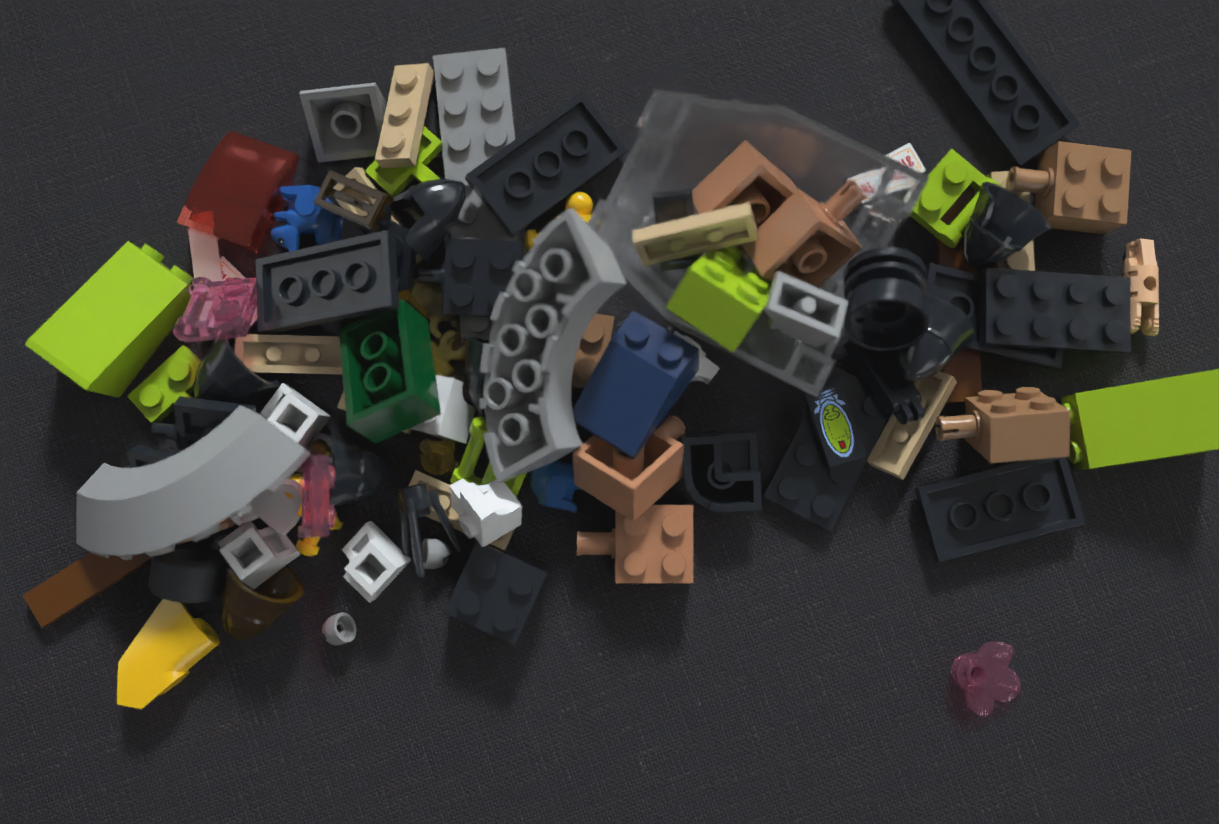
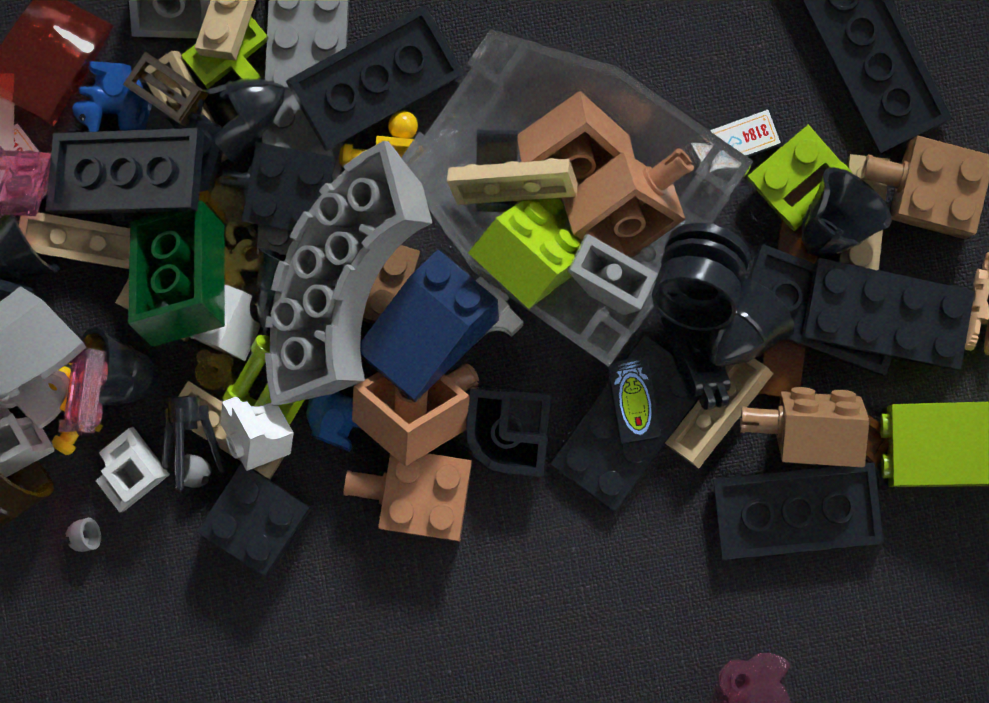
camera: 15 degrees right, 0 degrees up
(295, 415) = (71, 302): white brick -> none

